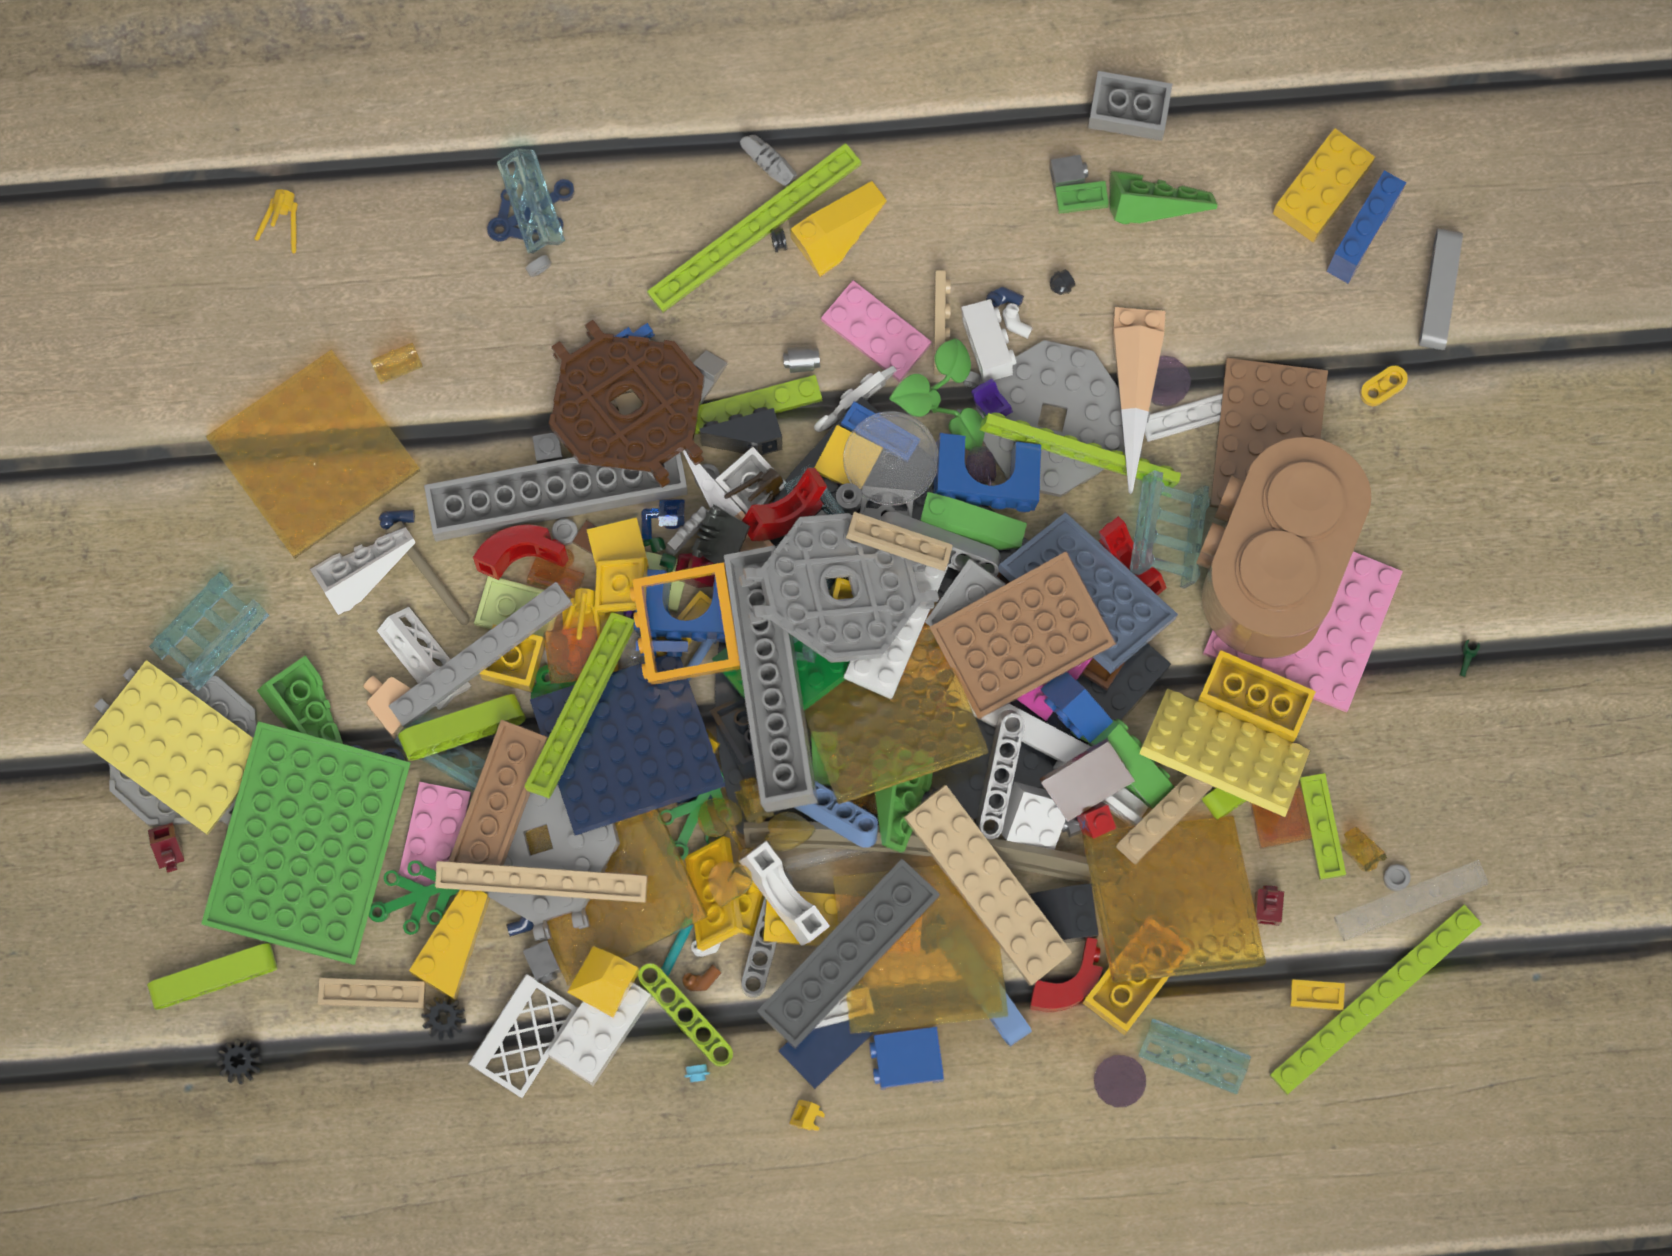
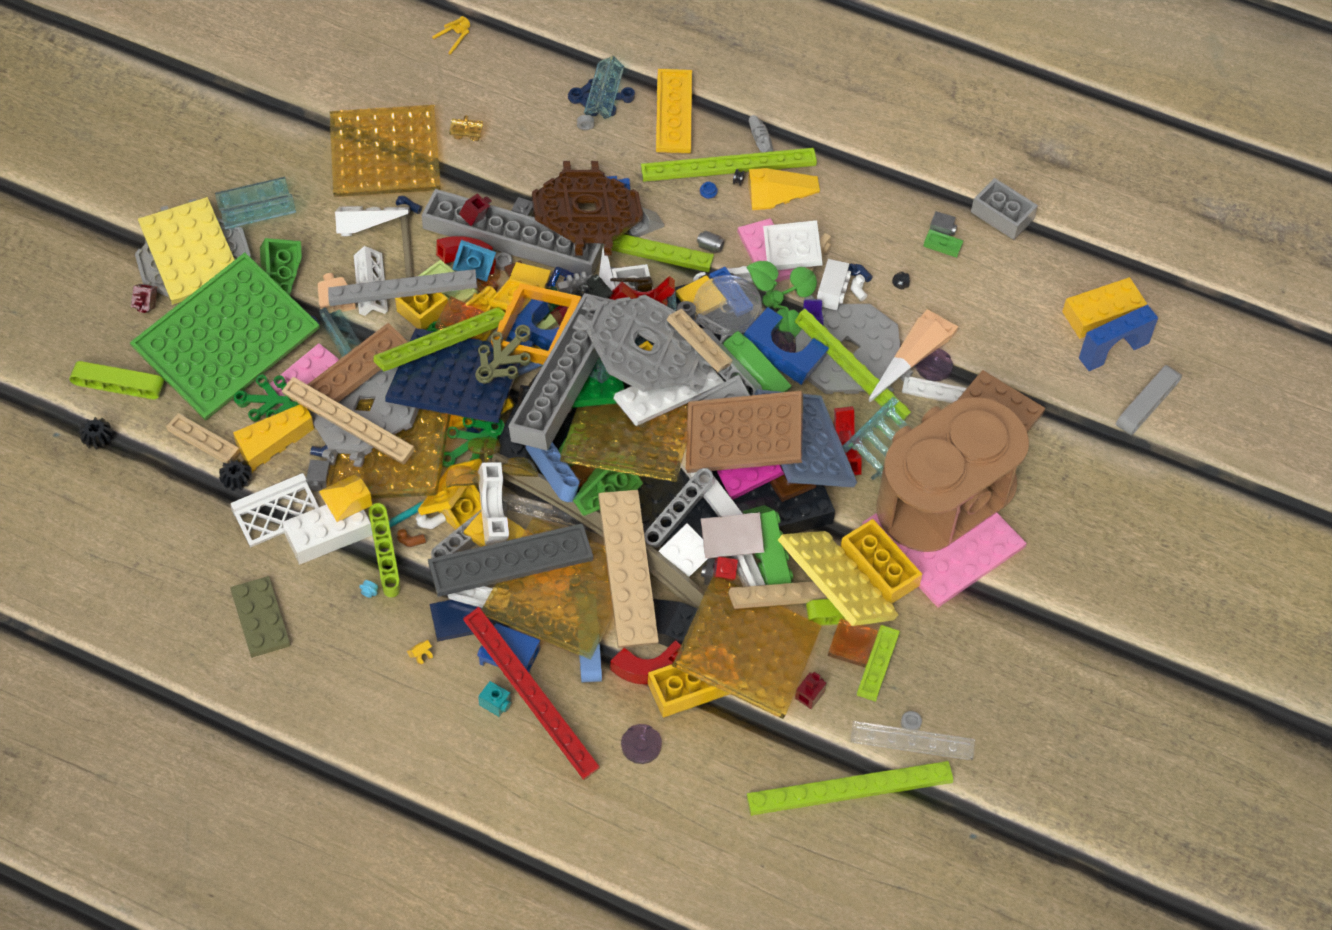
camera: 30 degrees right, 20 degrees down
(460, 727) = (358, 320): lime beam -> none
(501, 494) = (475, 209): none -> dark red brick
(539, 563) = (474, 257): none -> dark azure slope
(594, 1179) = (260, 616): none -> olive plate
(637, 182) = (674, 111): none -> yellow plate
(675, 698) = (502, 357): none -> olive plant
(744, 432) = (643, 252): black slope -> none
(750, 801) = (507, 447): clear yellow hips -> none
(752, 281) = (708, 190): none -> blue plate
(910, 315) = (793, 245): none -> white plate
(929, 1126) = (494, 699): none -> teal brick
(968, 1099) = (531, 694): none -> red plate
(1075, 707) = (753, 489): blue brick -> none
(1143, 201) = (978, 260): bright green wedge -> none
(1197, 1051) = (706, 749): clear light blue fence -> none
(1317, 995) = (810, 762): yellow plate -> none
(1362, 850) = (897, 689): clear yellow hips -> none
(1383, 387) = (1076, 434): yellow plate -> none
(1468, 655) = (1043, 615): dark green hand -> none

